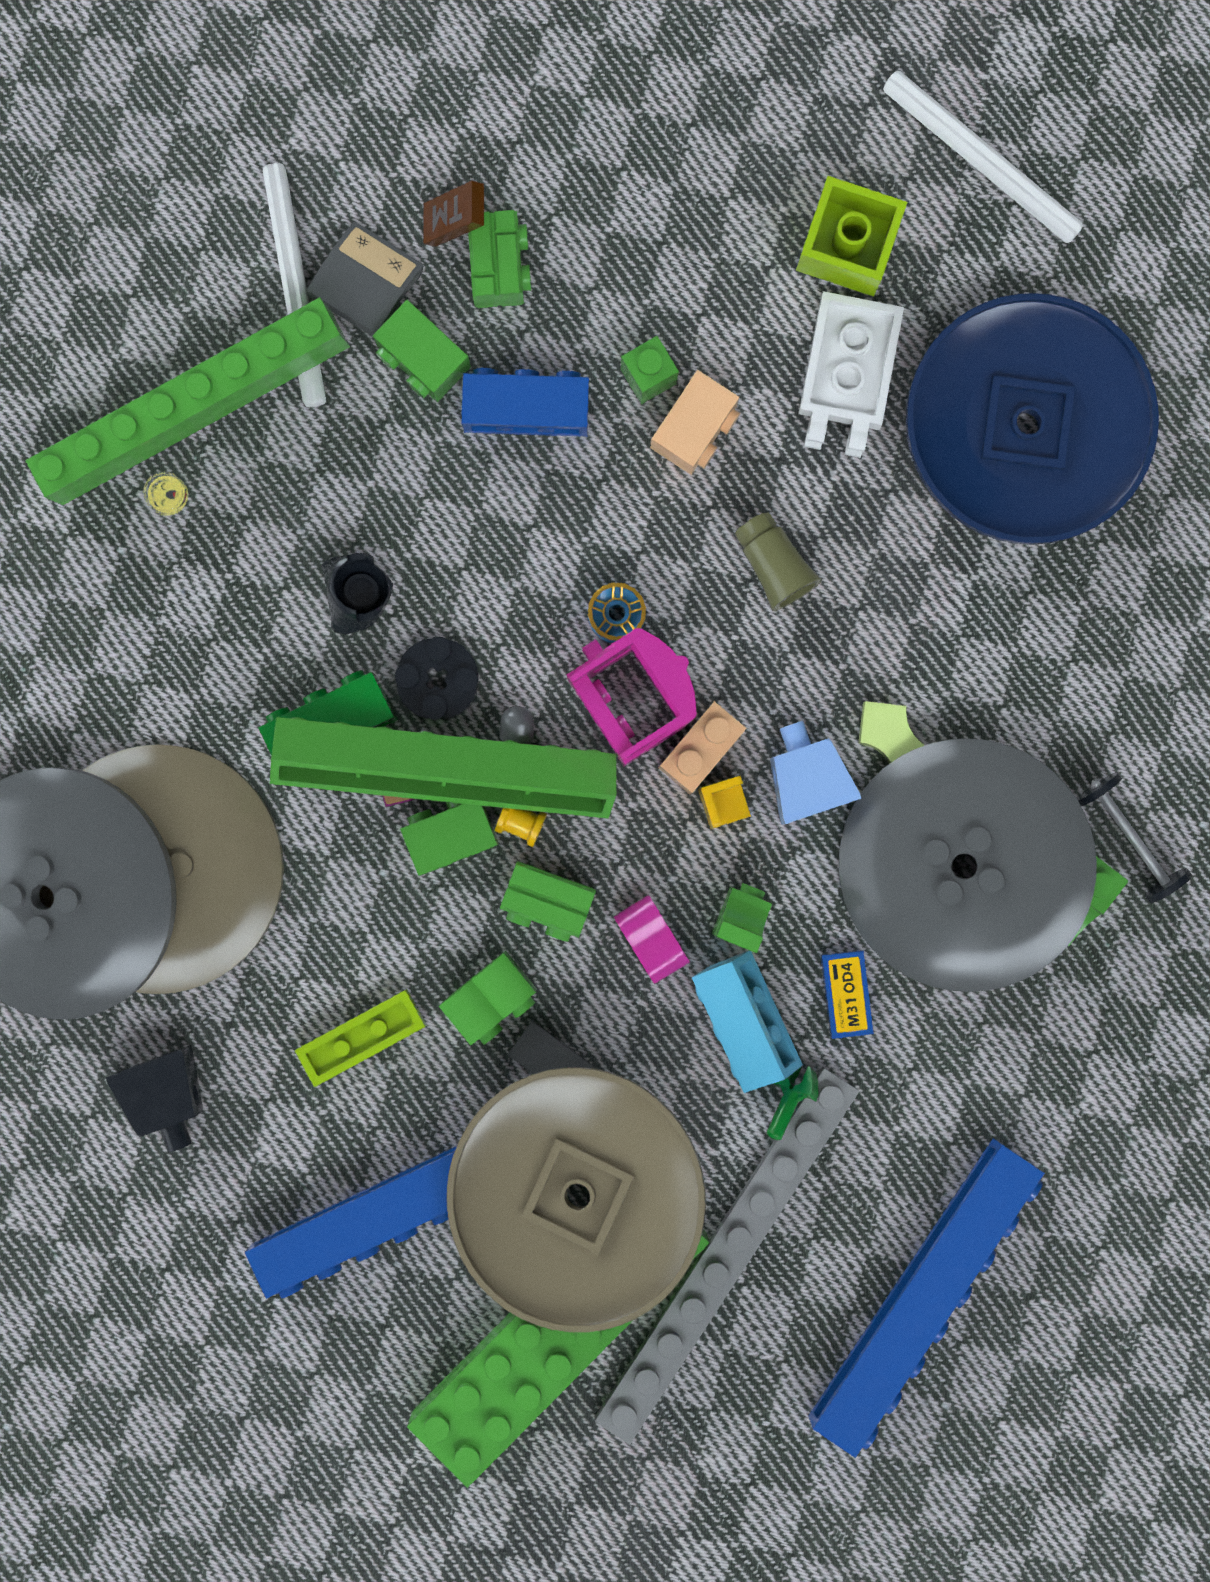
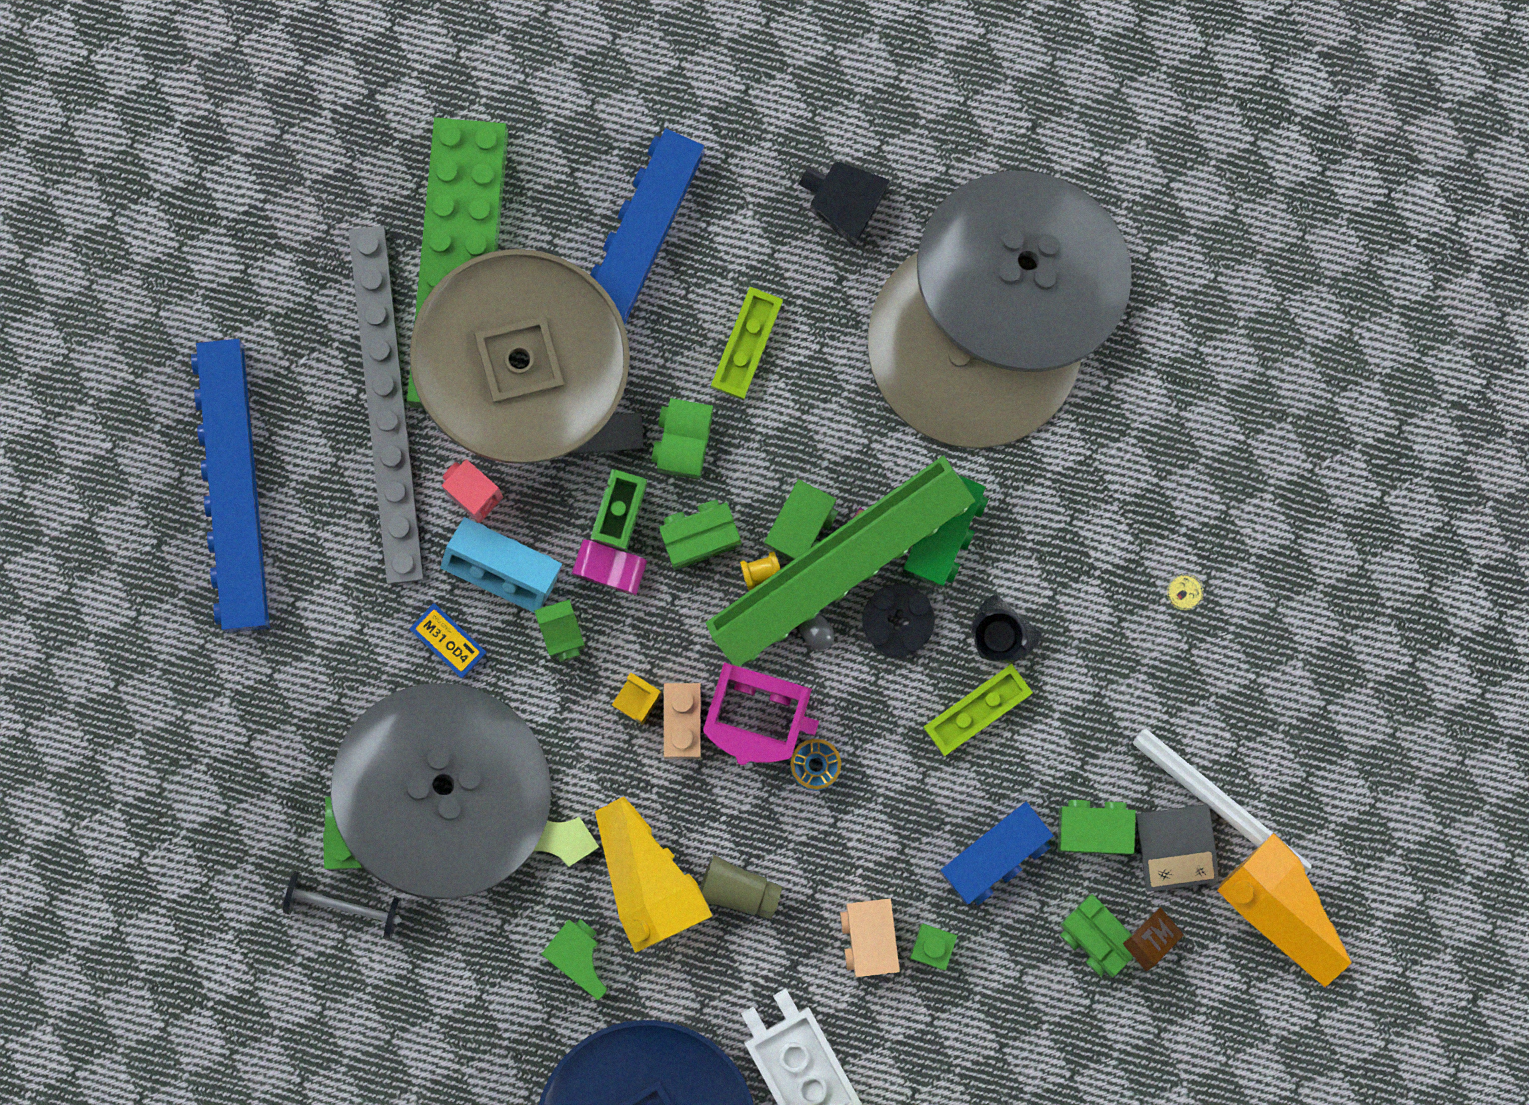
camera: 140 degrees right, 5 degrees down
(188, 403) = (1217, 662): bright green brick -> none
(316, 151) = (1281, 904): none -> light orange wedge
(435, 541) = (977, 710): none -> lime plate
(601, 982) = (619, 510): none -> bright green brick
(719, 1112) = (471, 490): none -> coral brick
(791, 1096) = (429, 541): green bar -> none
(809, 776) = (594, 763): light blue torso -> none
(856, 621) = (647, 885): none -> yellow wedge
(968, 624) = (573, 954): none -> bright green arch

